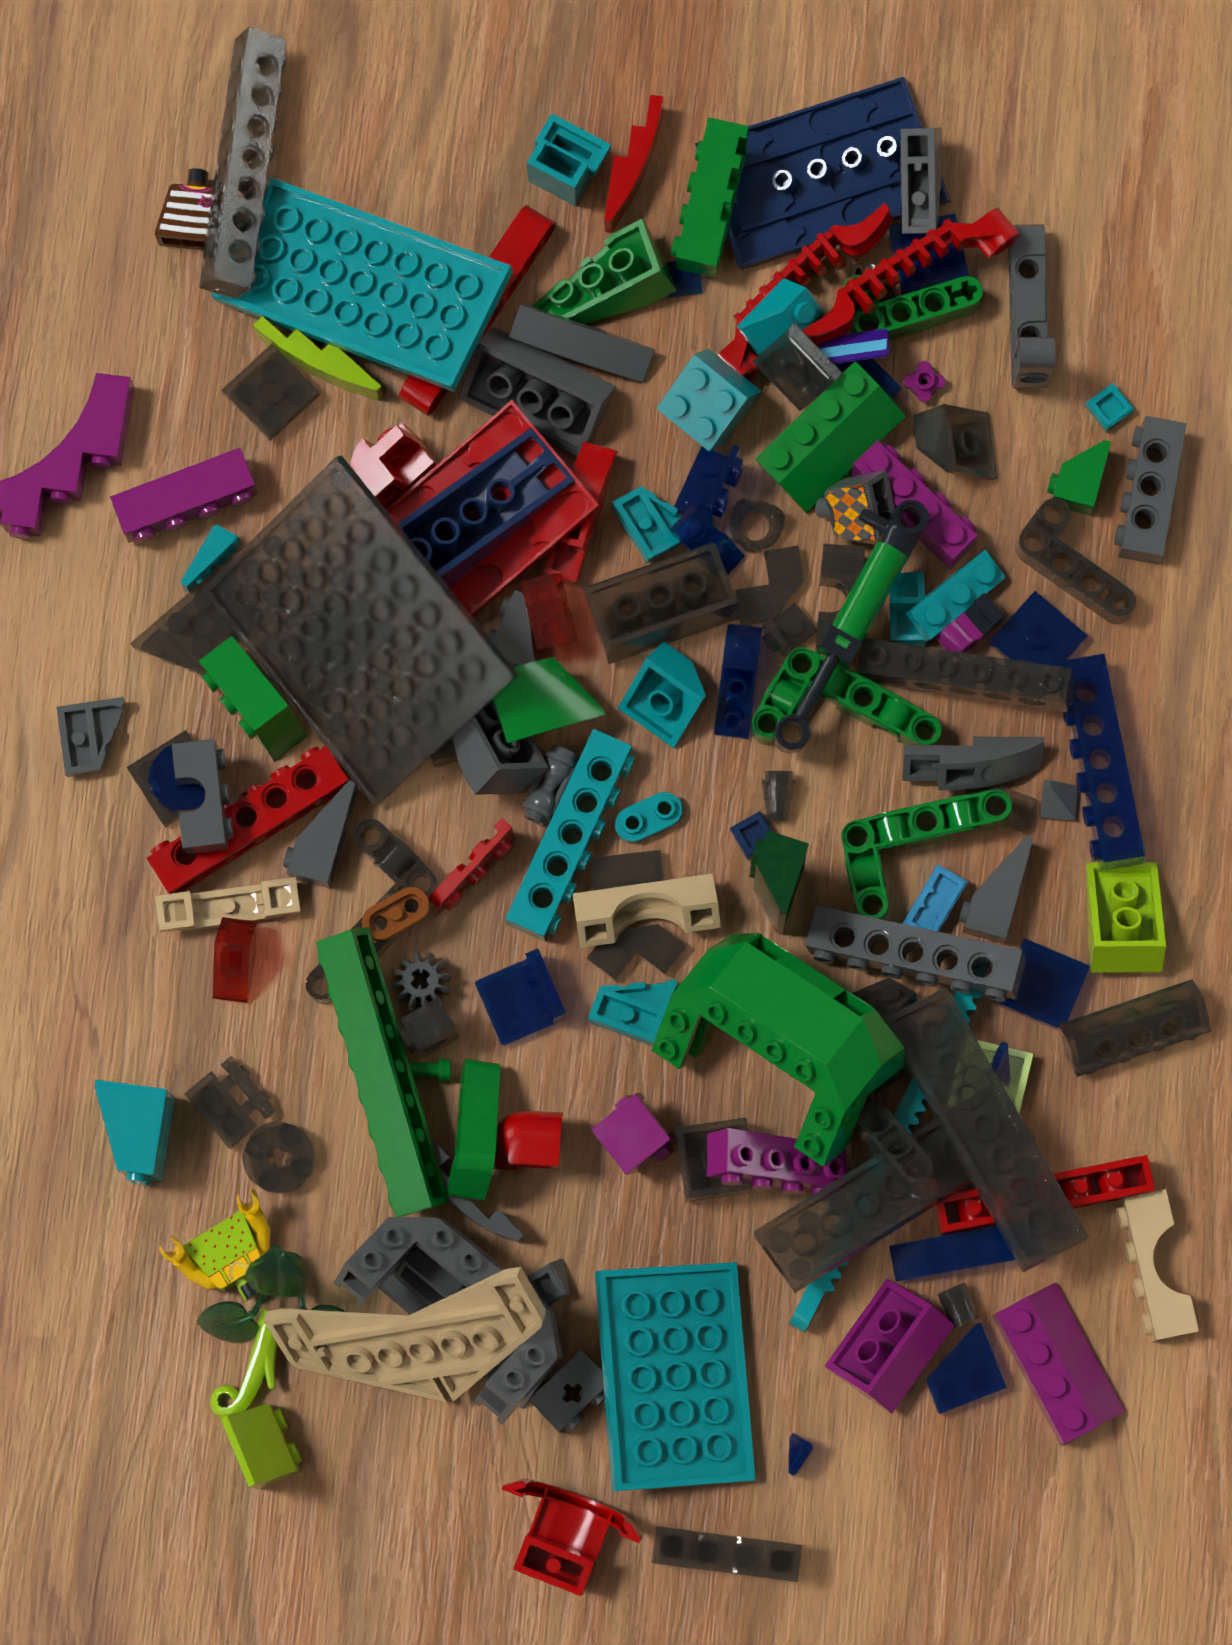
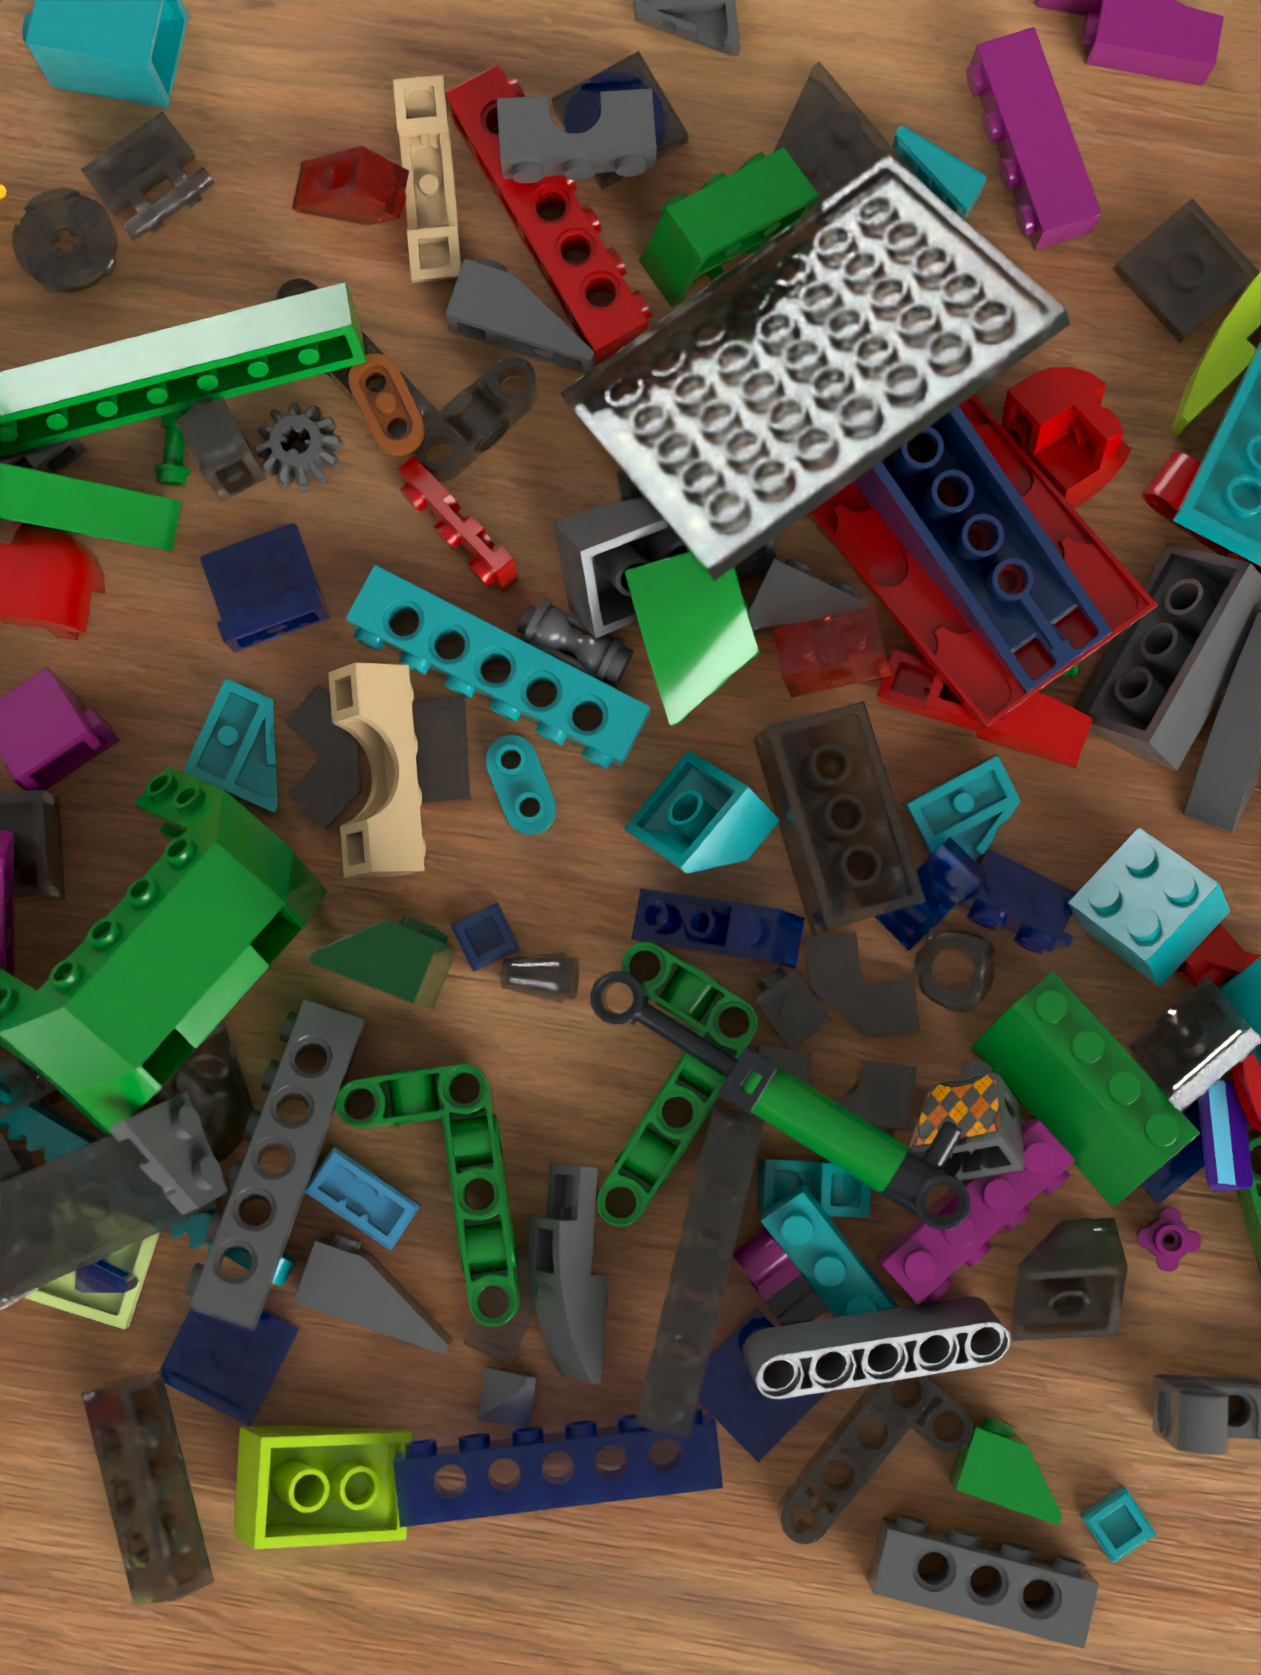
camera: 90 degrees right, 5 degrees up
(921, 1000) = (175, 1152): none -> dark grey wing
(1006, 561) = (850, 1340): none -> dark grey beam

